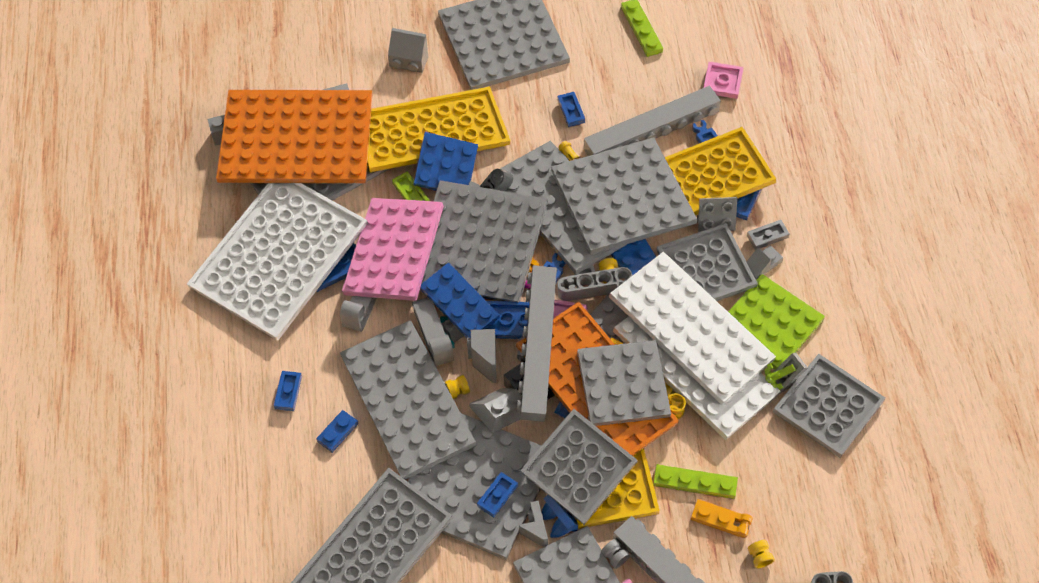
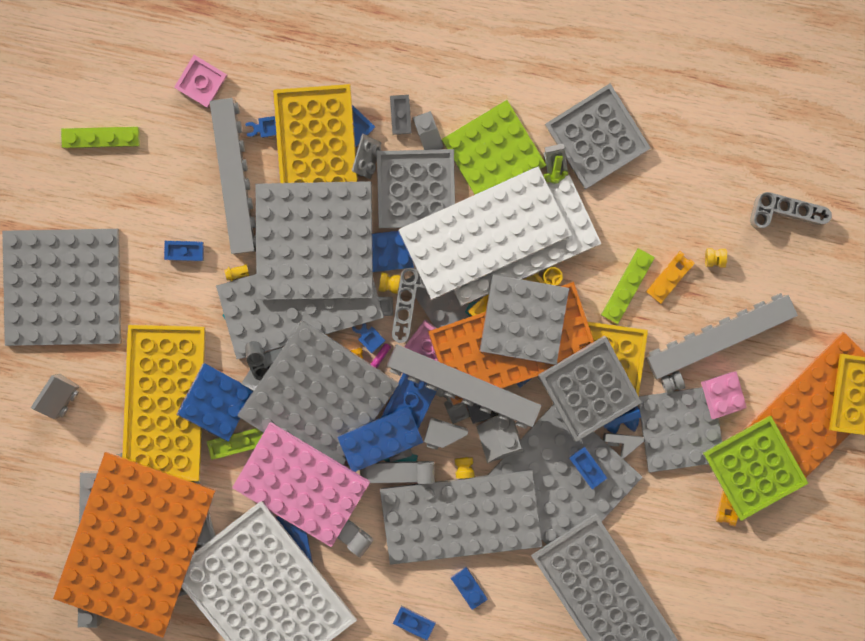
camera: 70 degrees left, 30 degrees up
(508, 363) = (456, 412): none -> light grey slope

